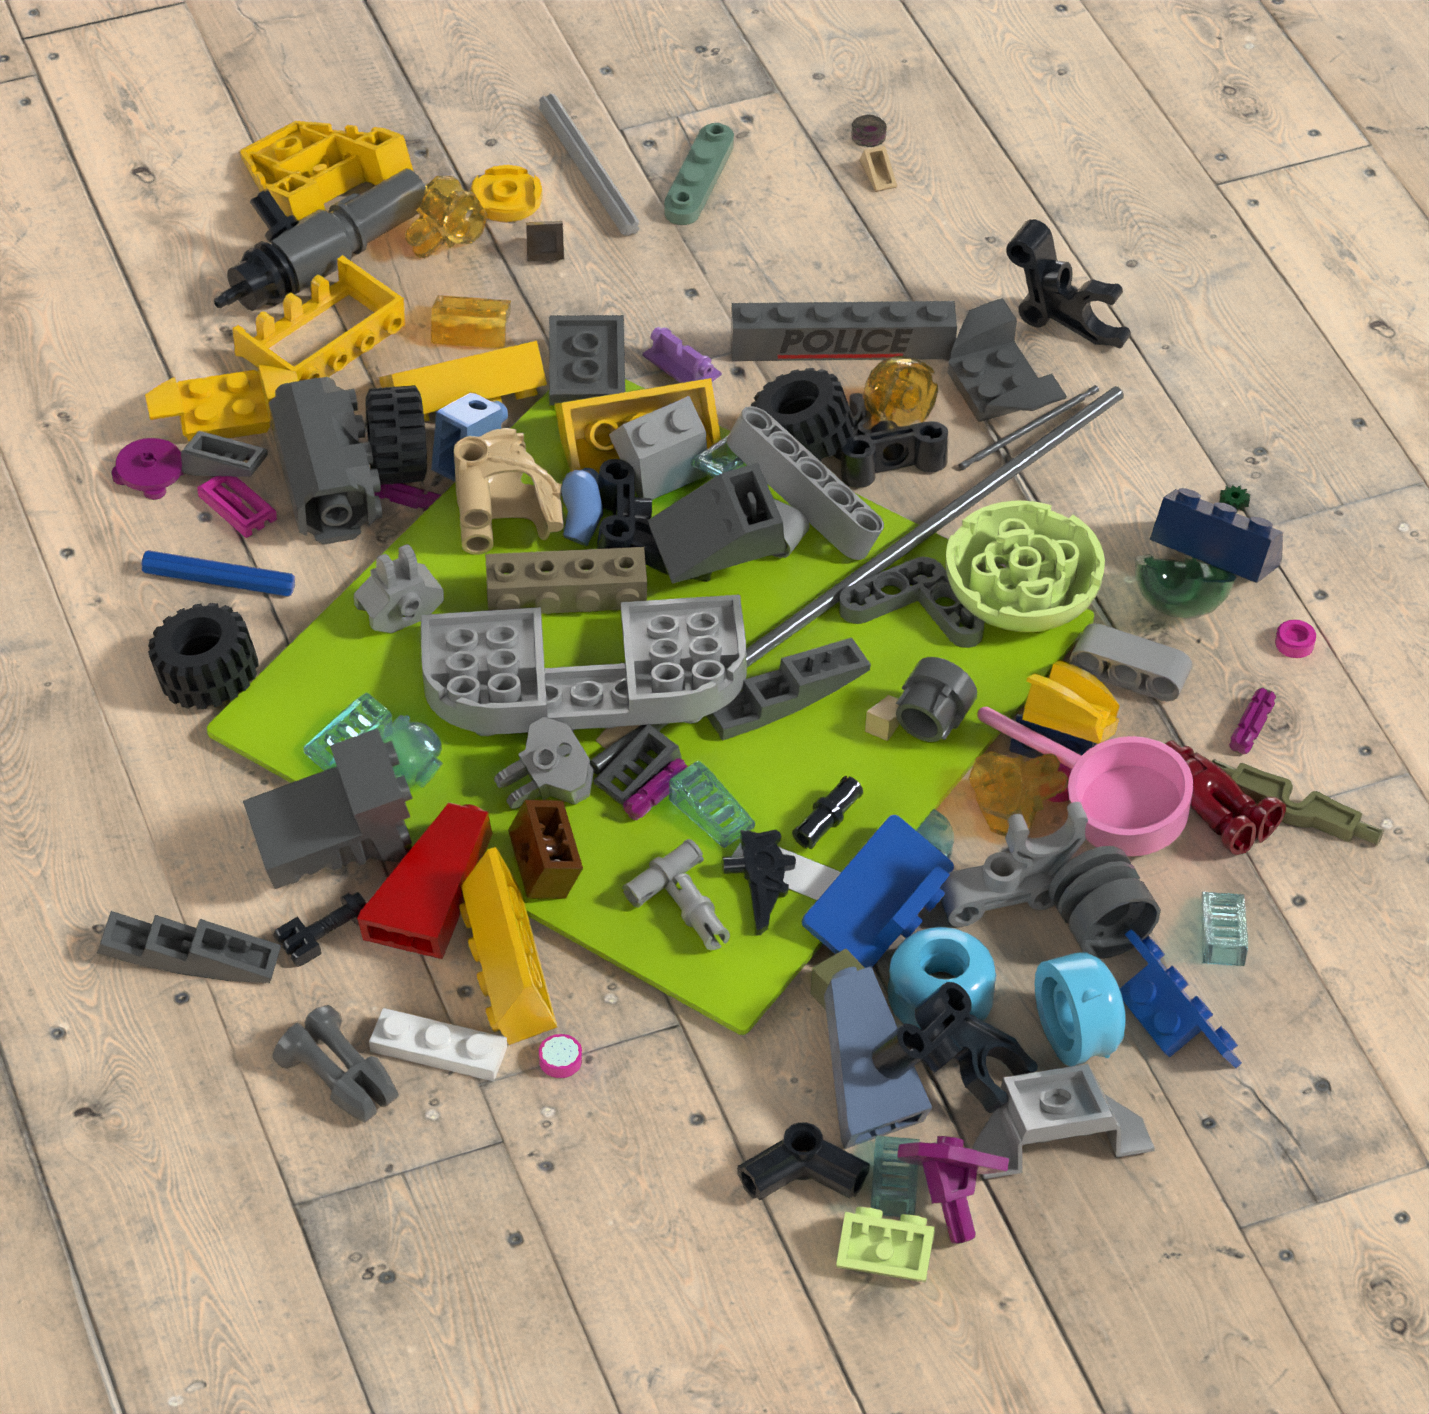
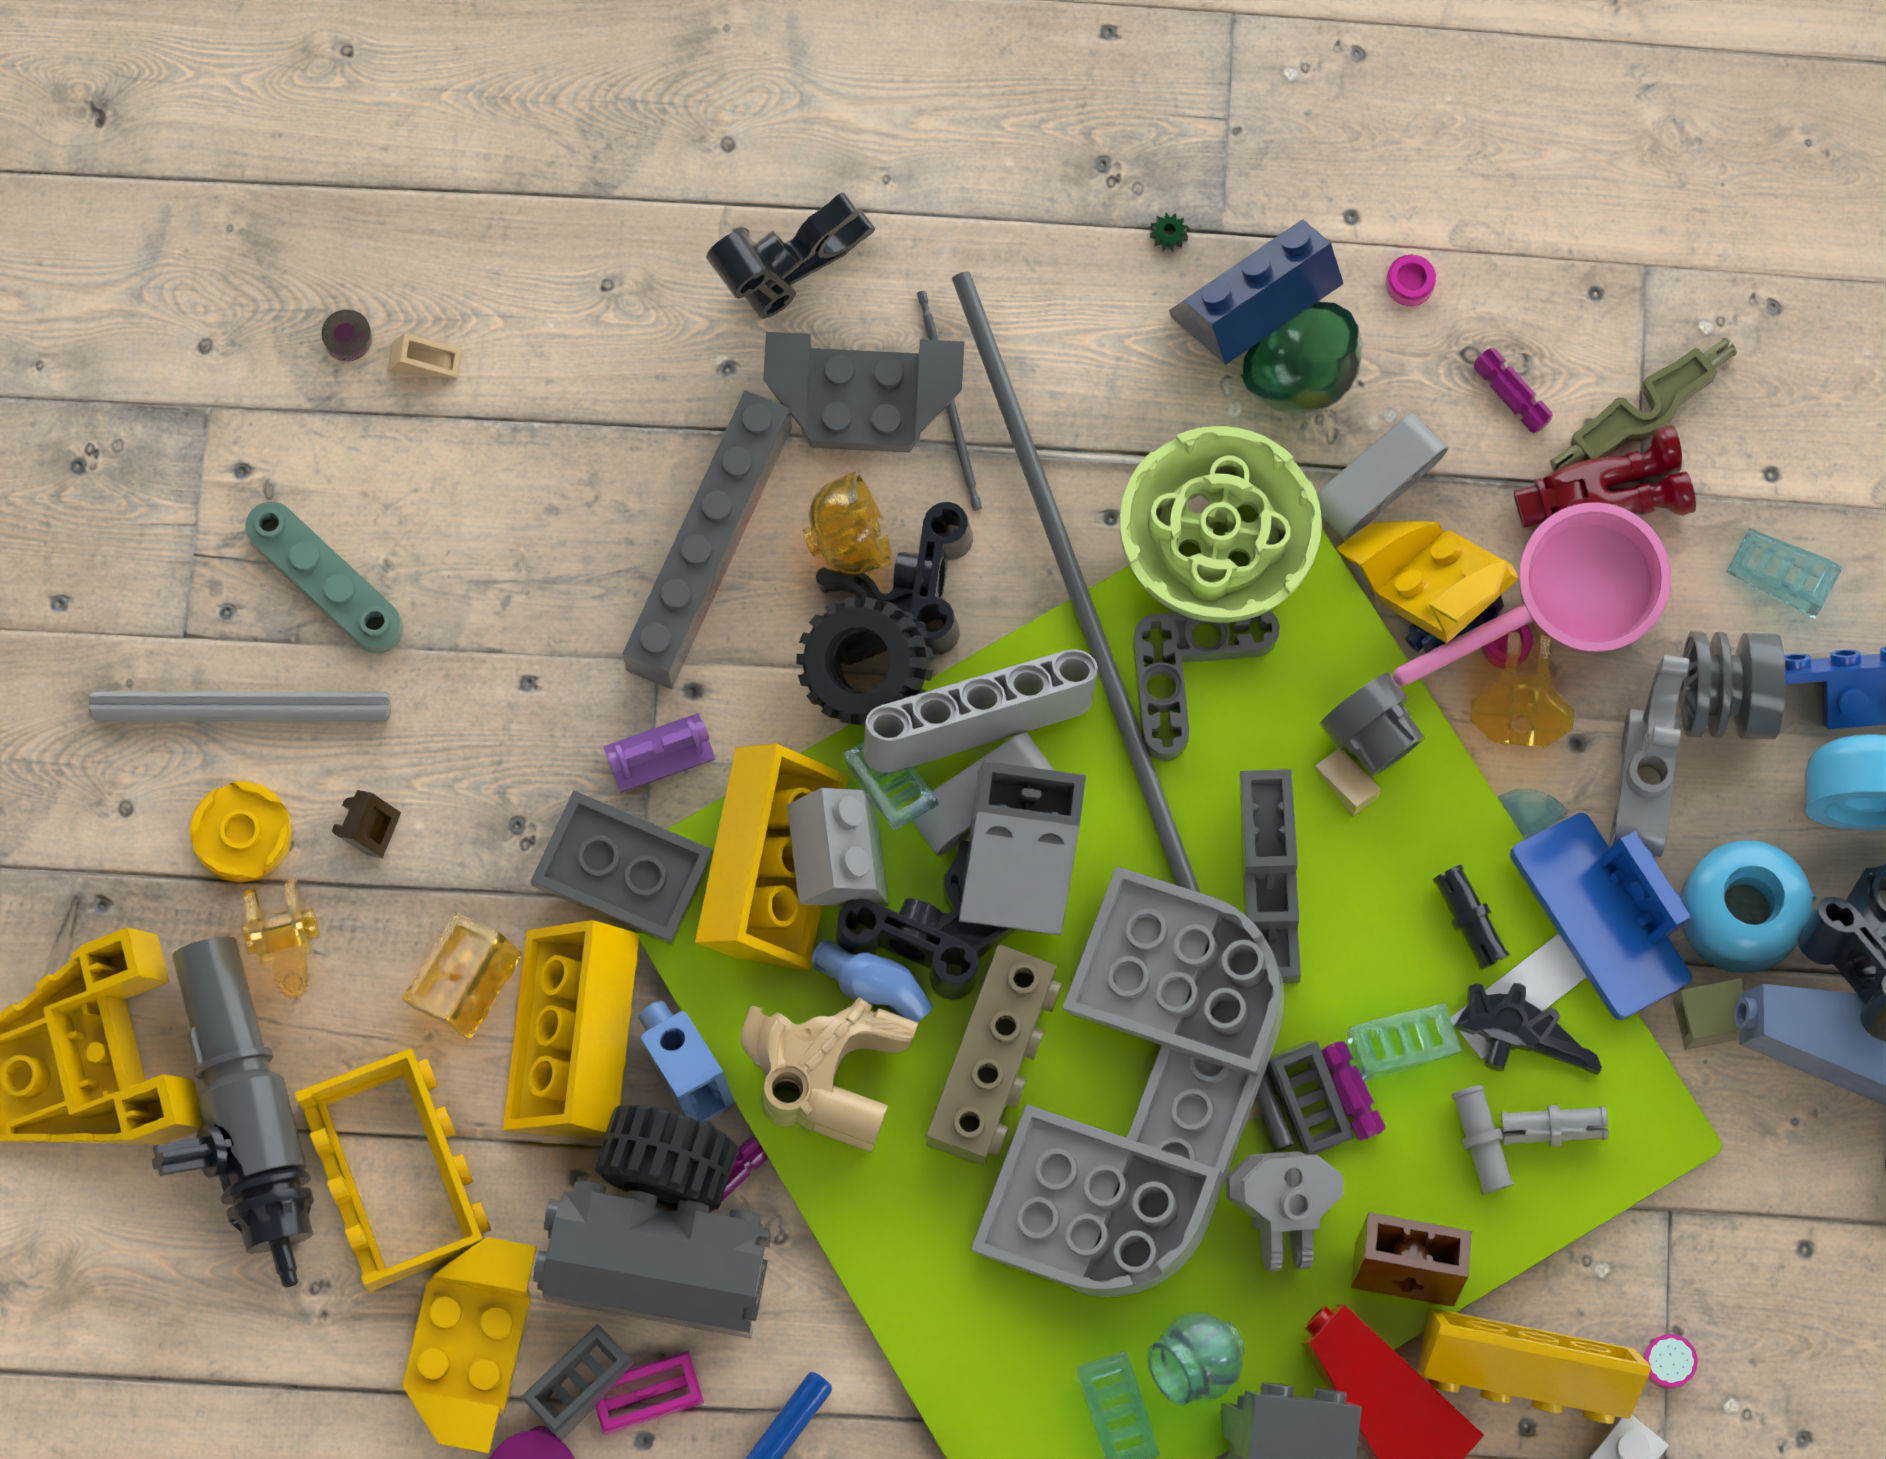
camera: 65 degrees left, 25 degrees up
(398, 590) = (932, 1263): light grey hinge -> none

